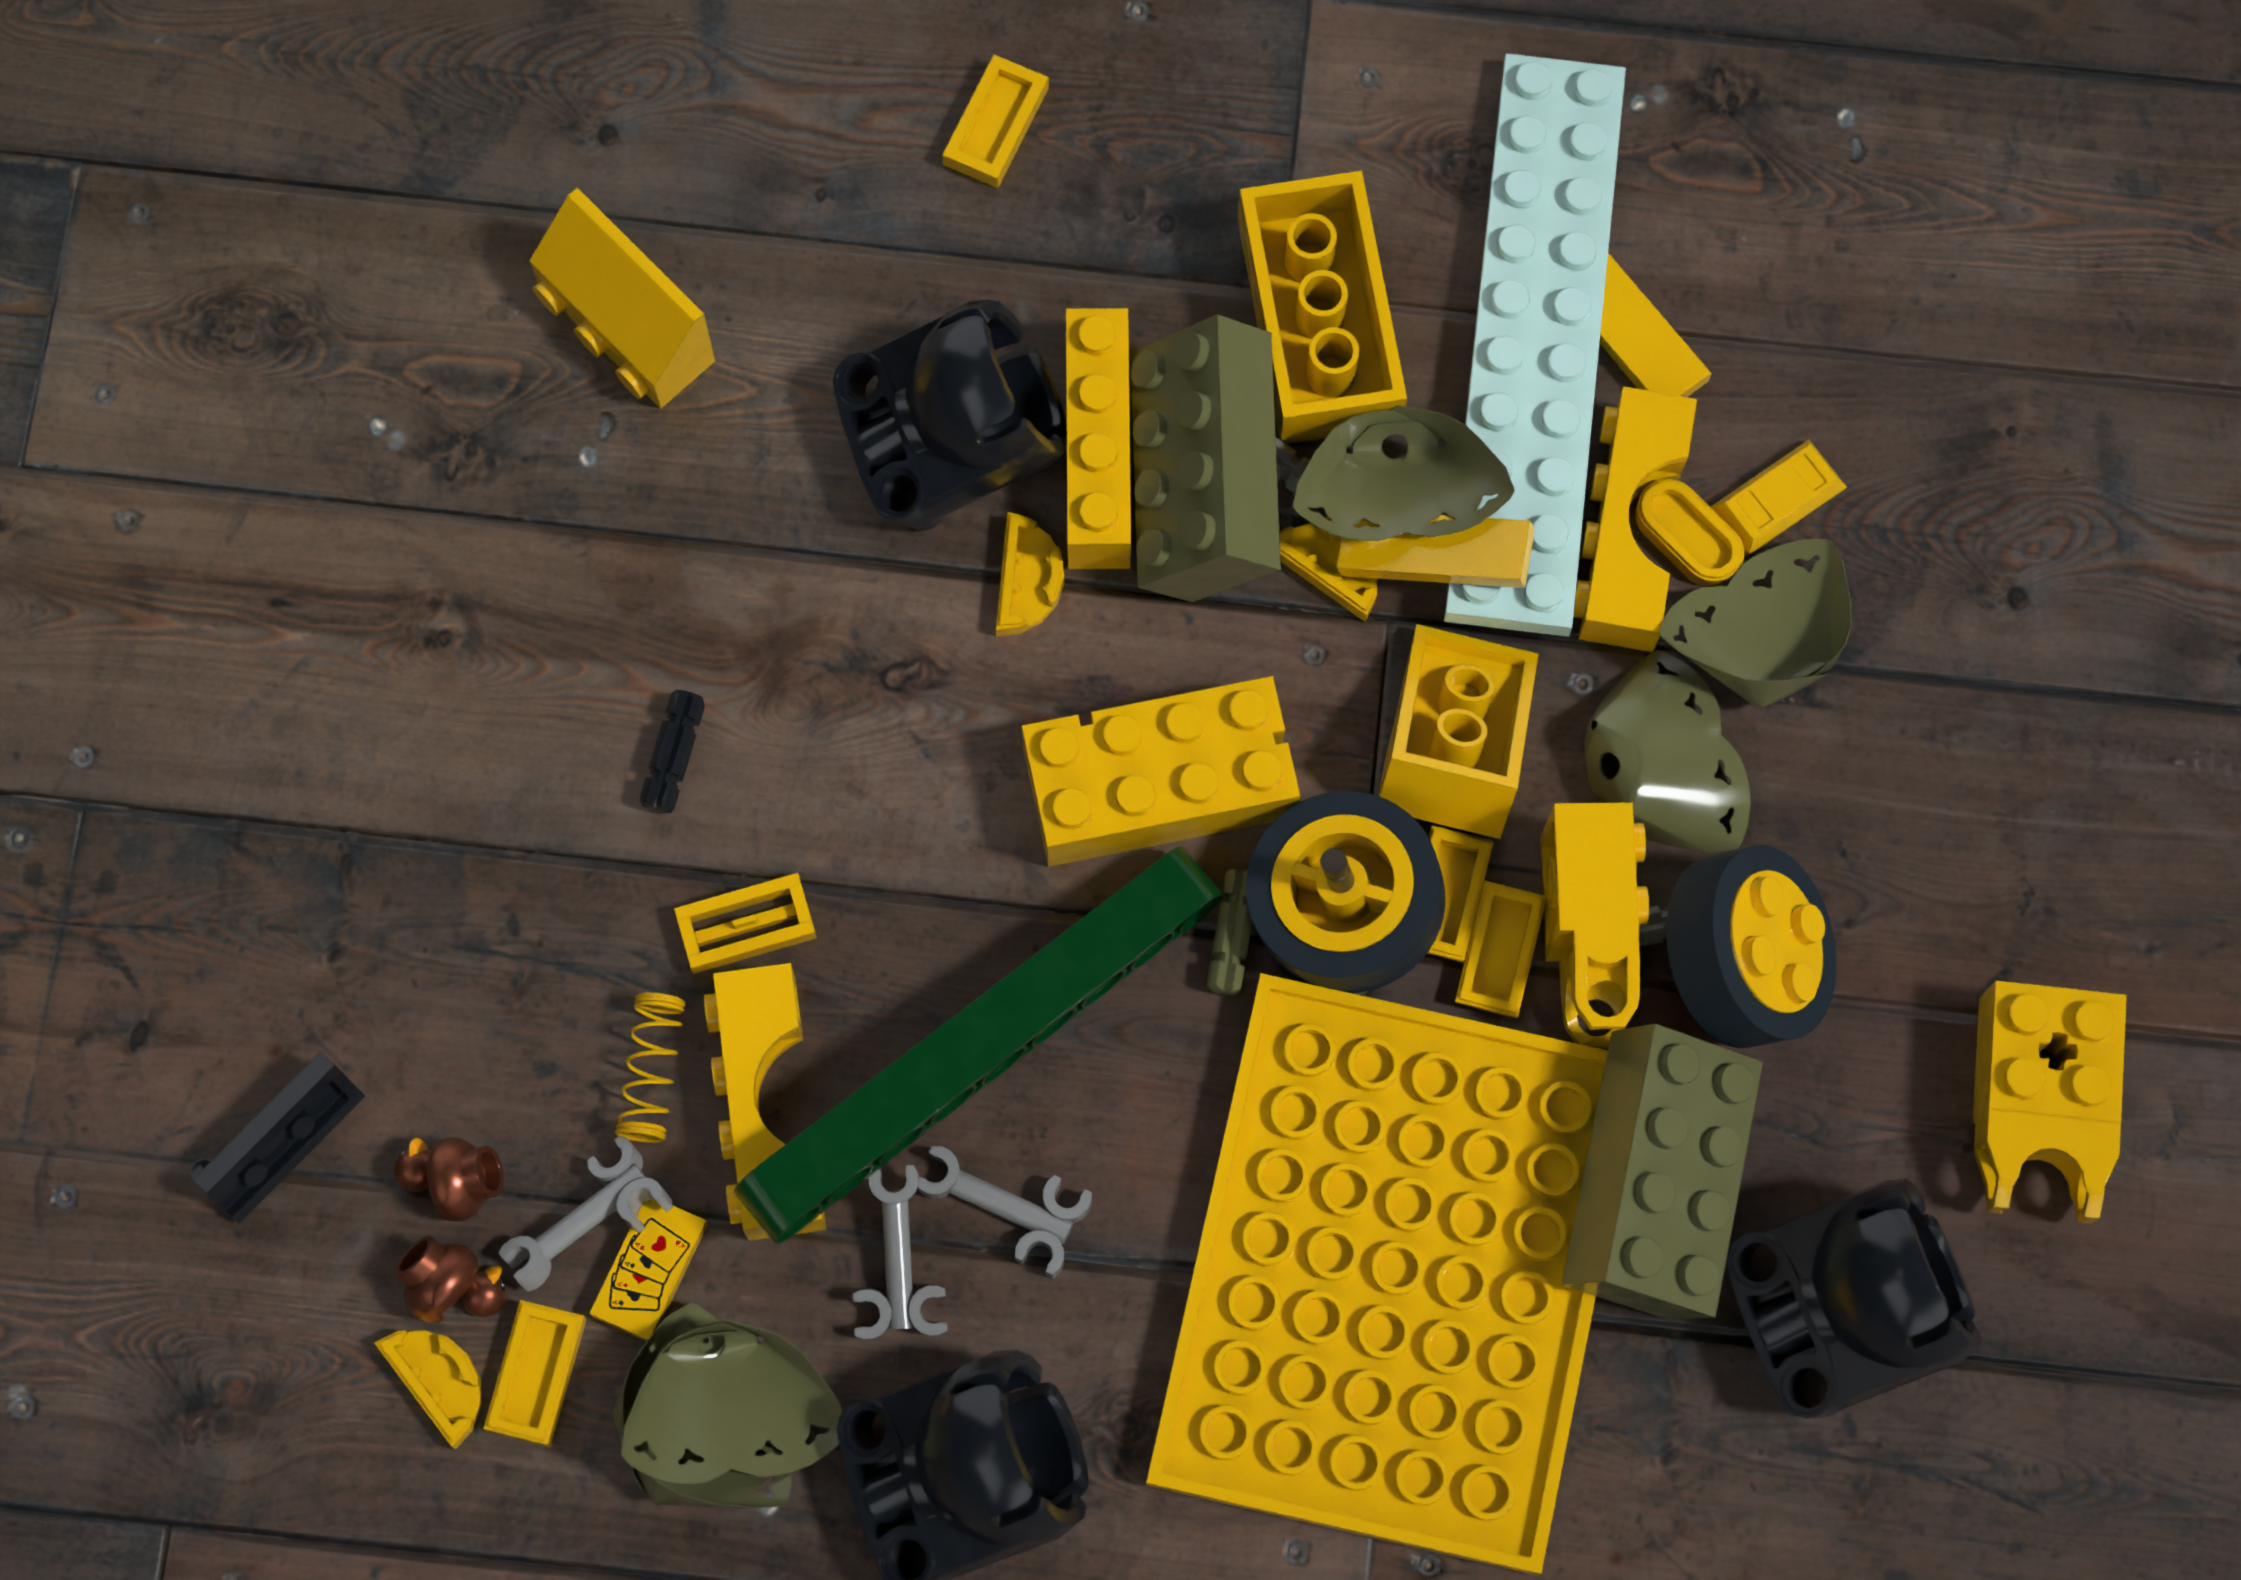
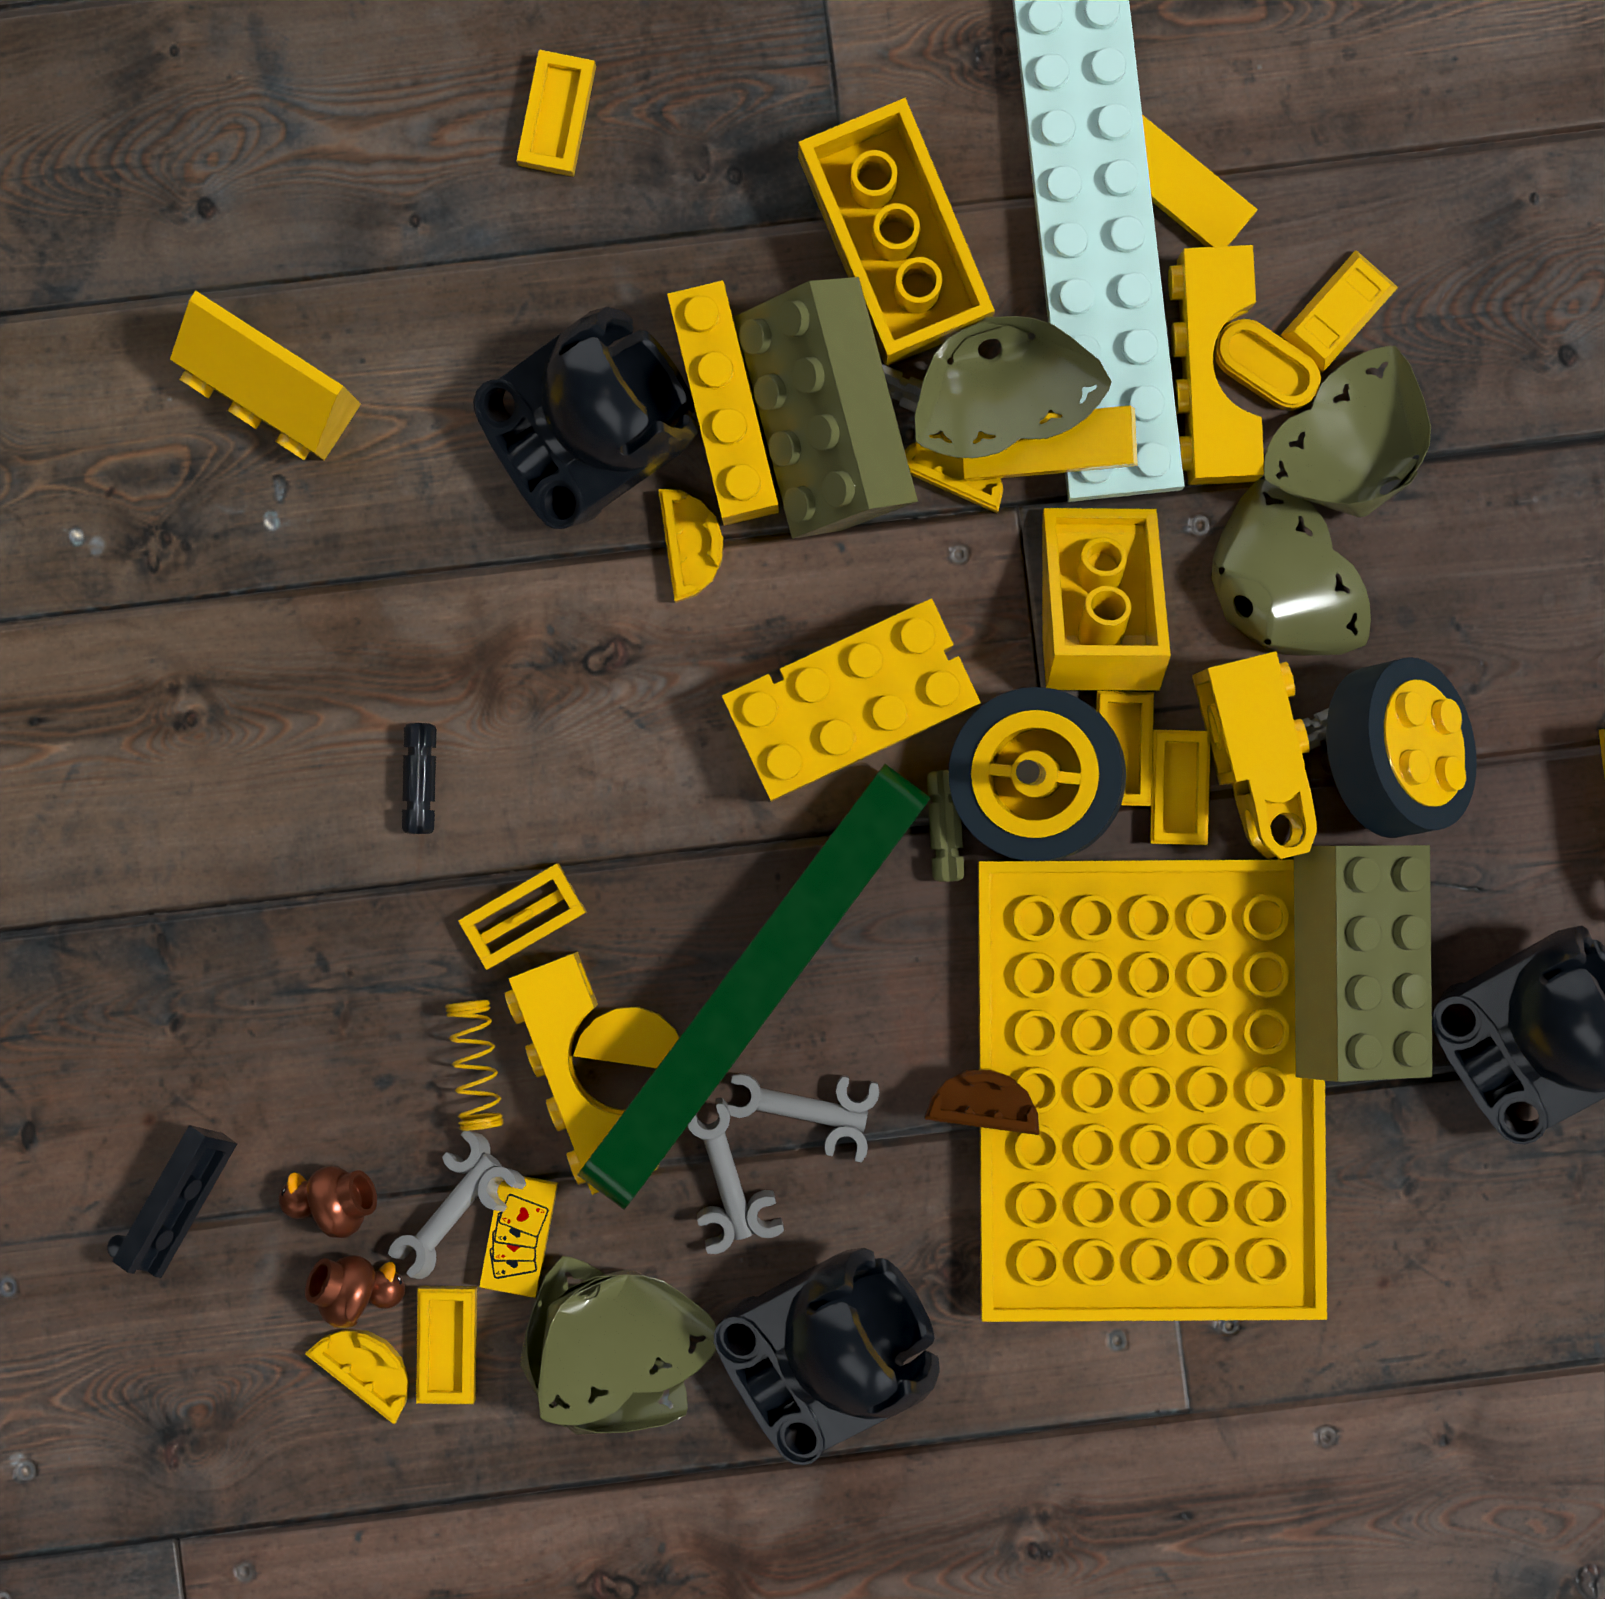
camera: 15 degrees left, 15 degrees up
(818, 1075) = (628, 1037): none -> yellow tile
(1206, 1231) = (984, 1100): none -> reddish brown tile

